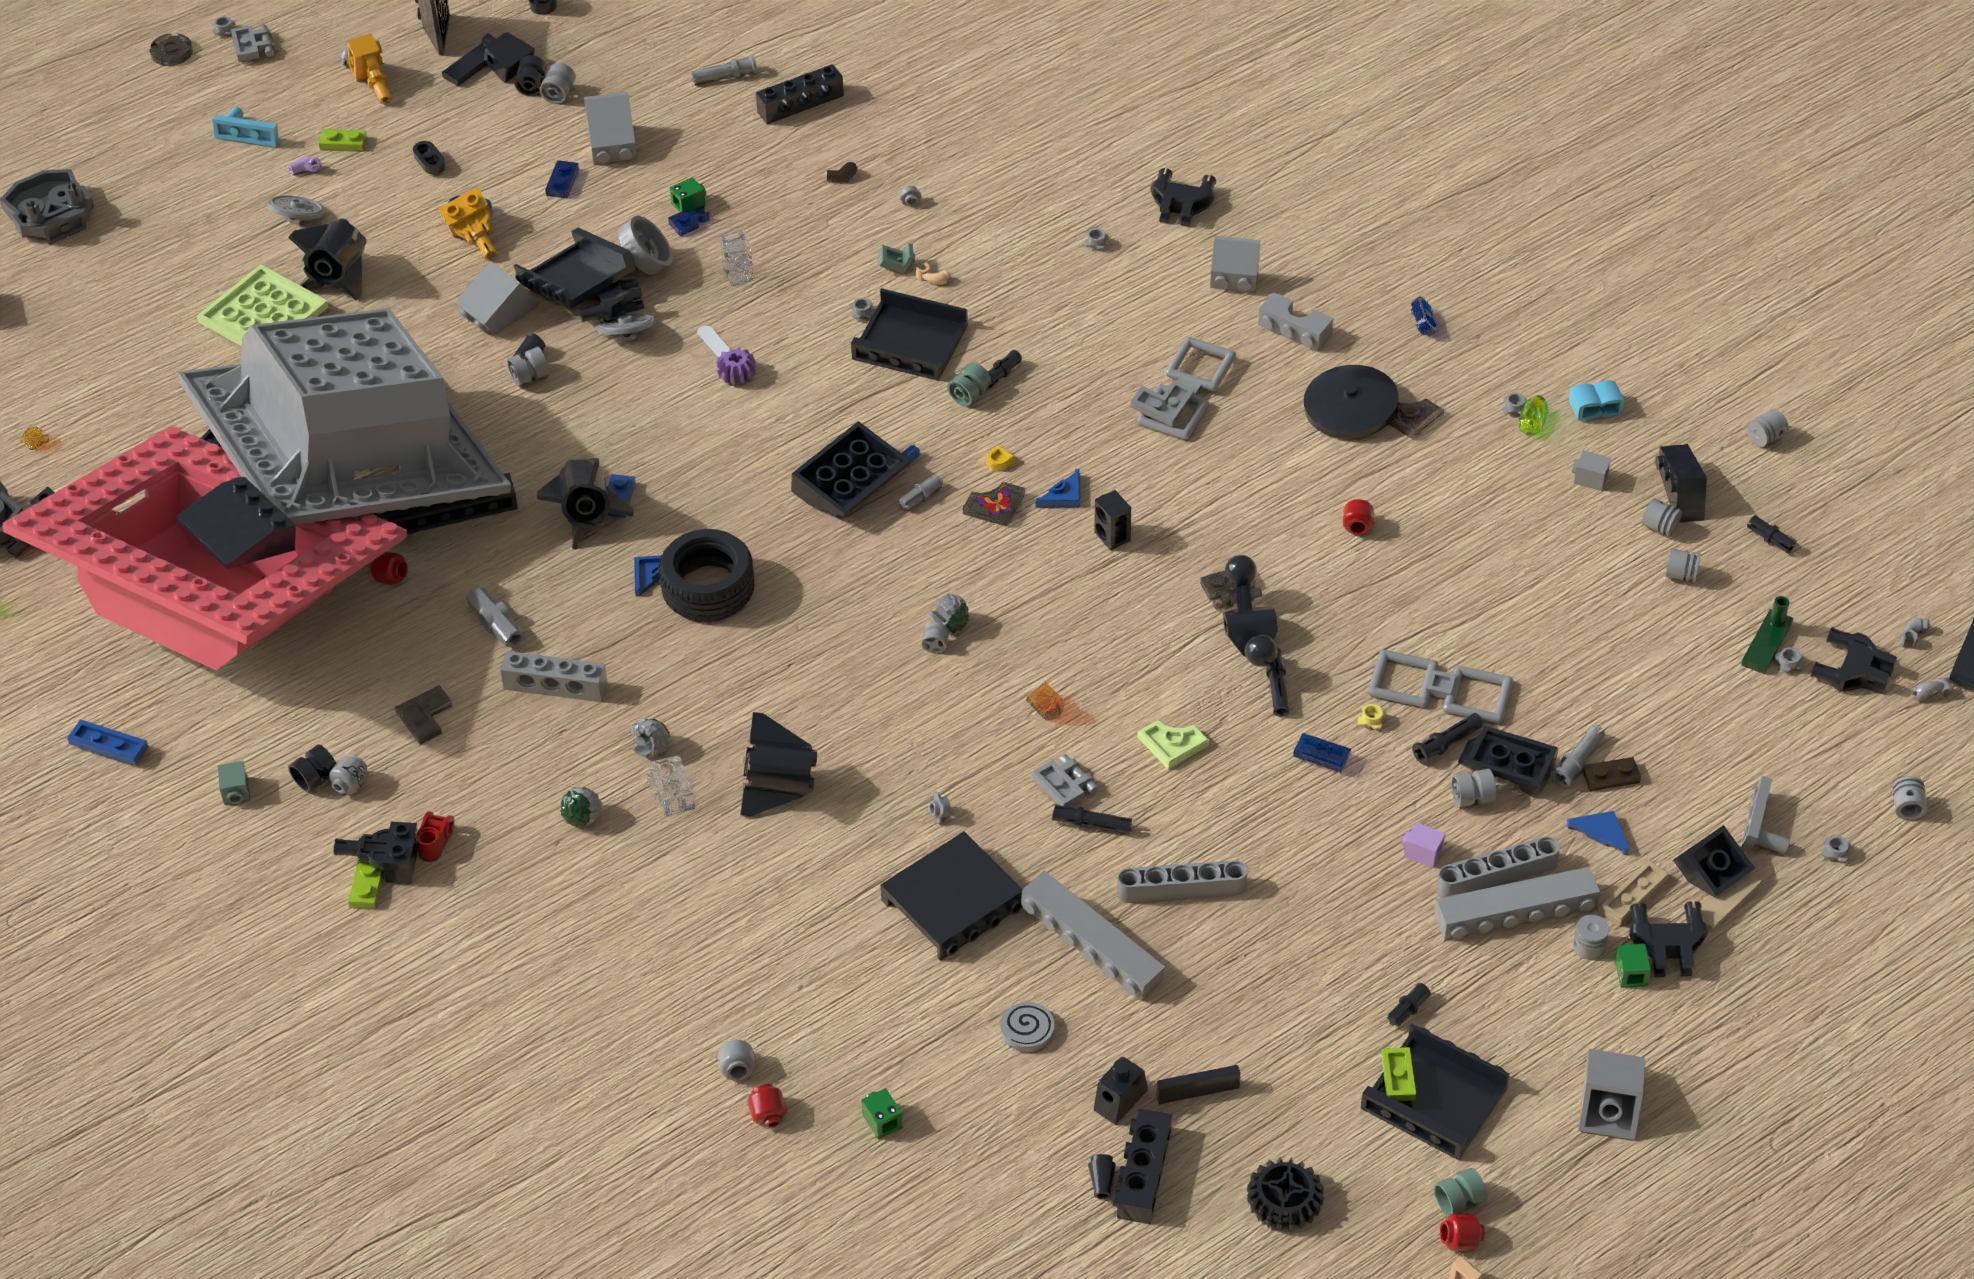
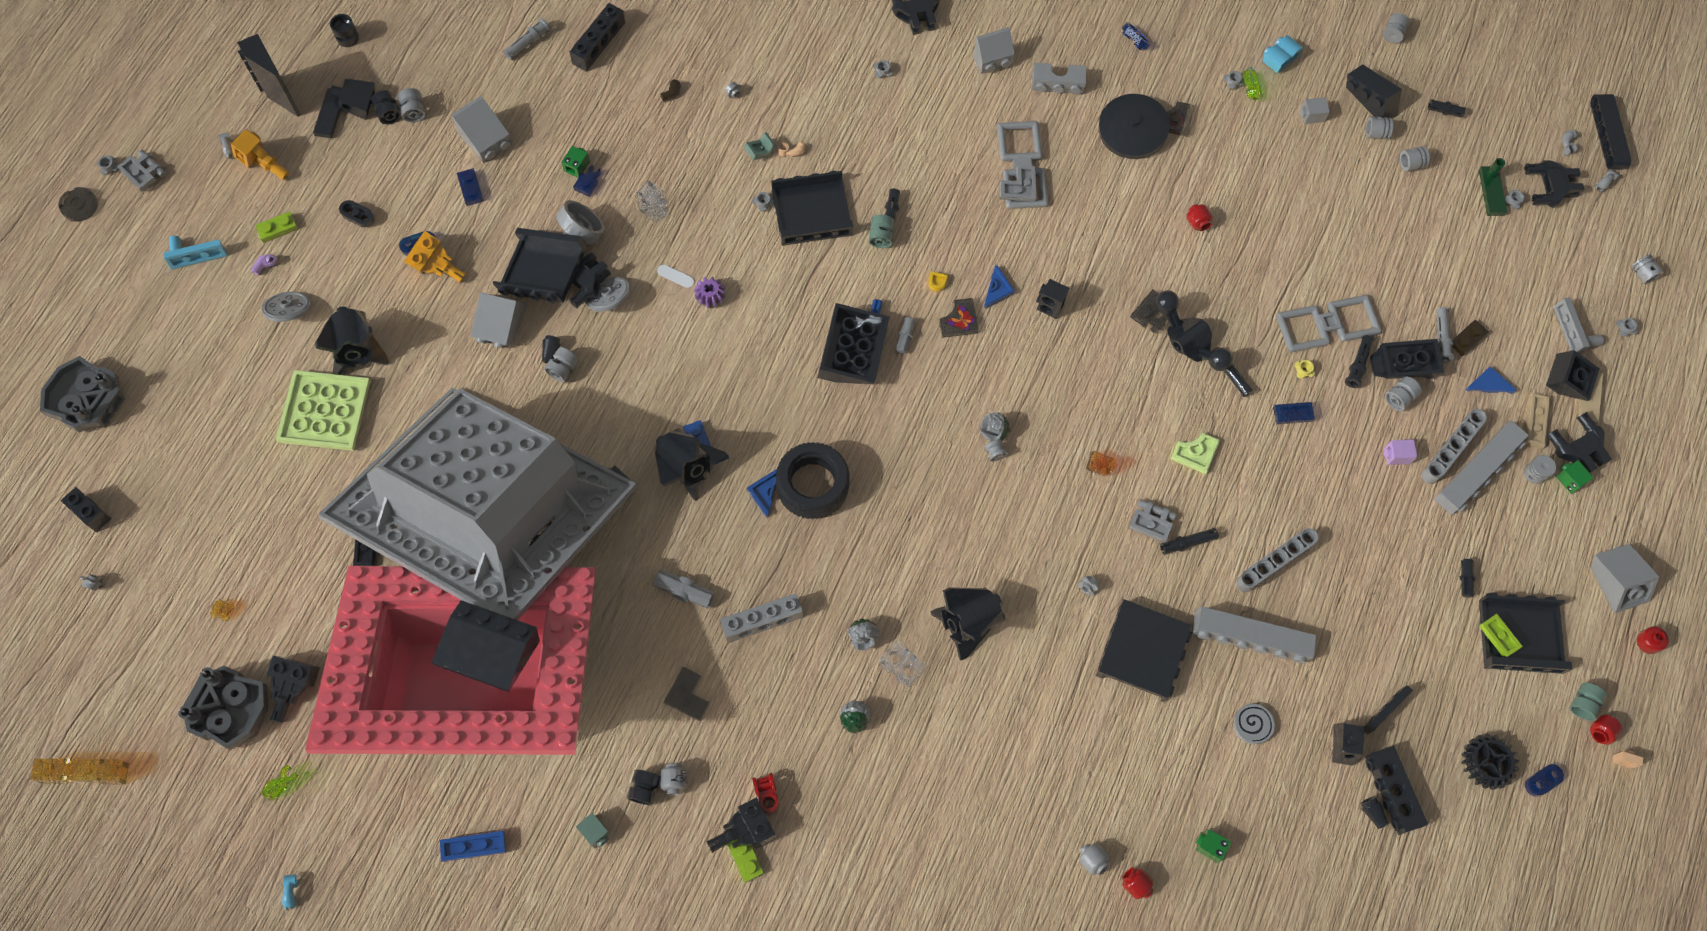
camera: 35 degrees left, 20 degrees up
(1343, 1250) = (1546, 780): none -> clear blue plate
(1598, 1170) = (1652, 640): none -> red head

